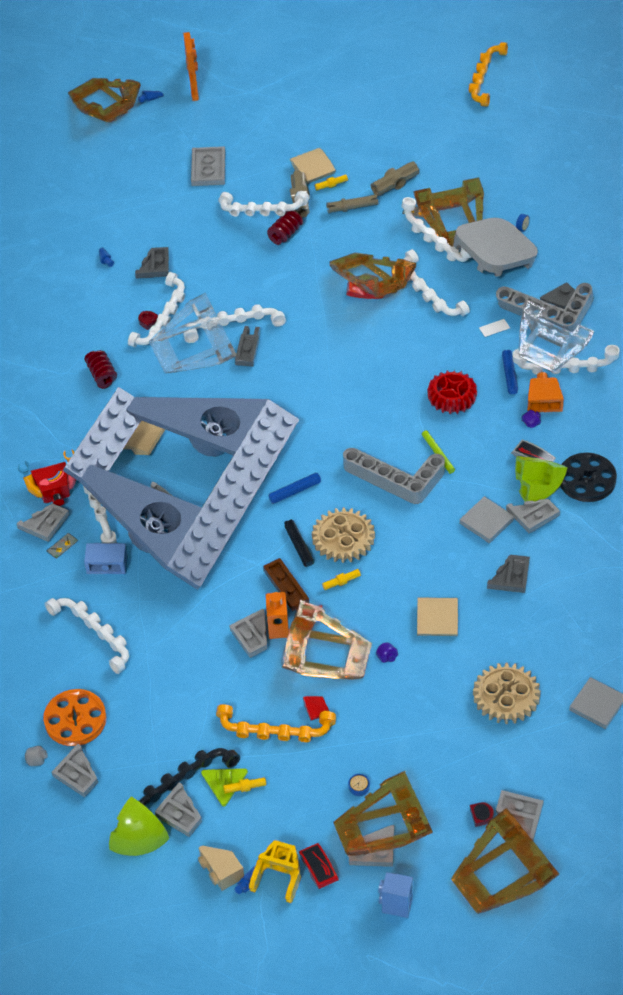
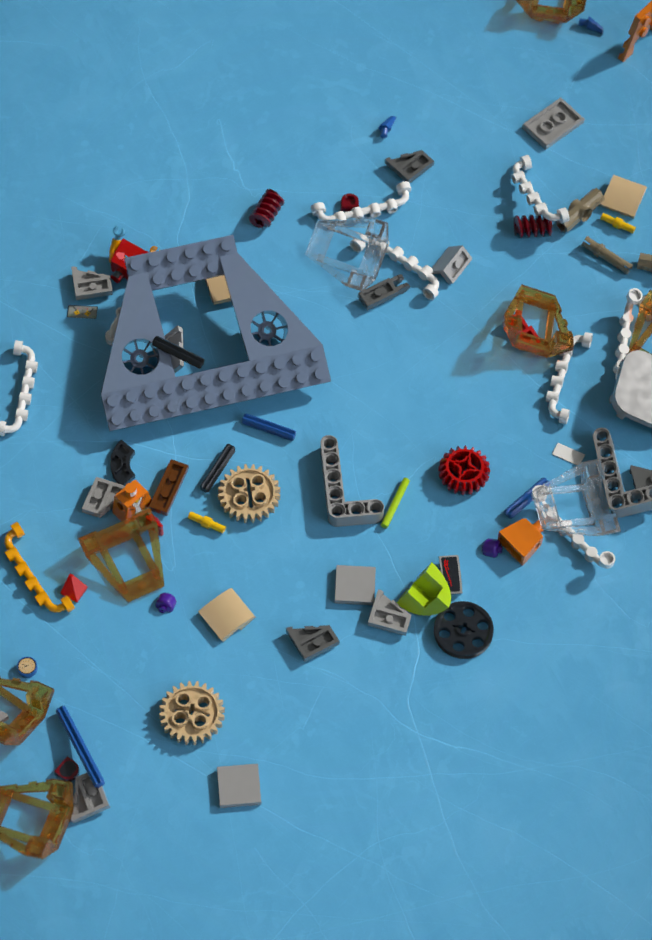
camera: 45 degrees right, 10 degrees up
(105, 558) = (90, 348): medium blue brick -> none
(183, 489) = (178, 352): none -> black axle
(230, 604) = (120, 463): none -> black tile
(265, 291) = (452, 263): none -> light grey panel
(471, 788) = (80, 747): none -> blue axle

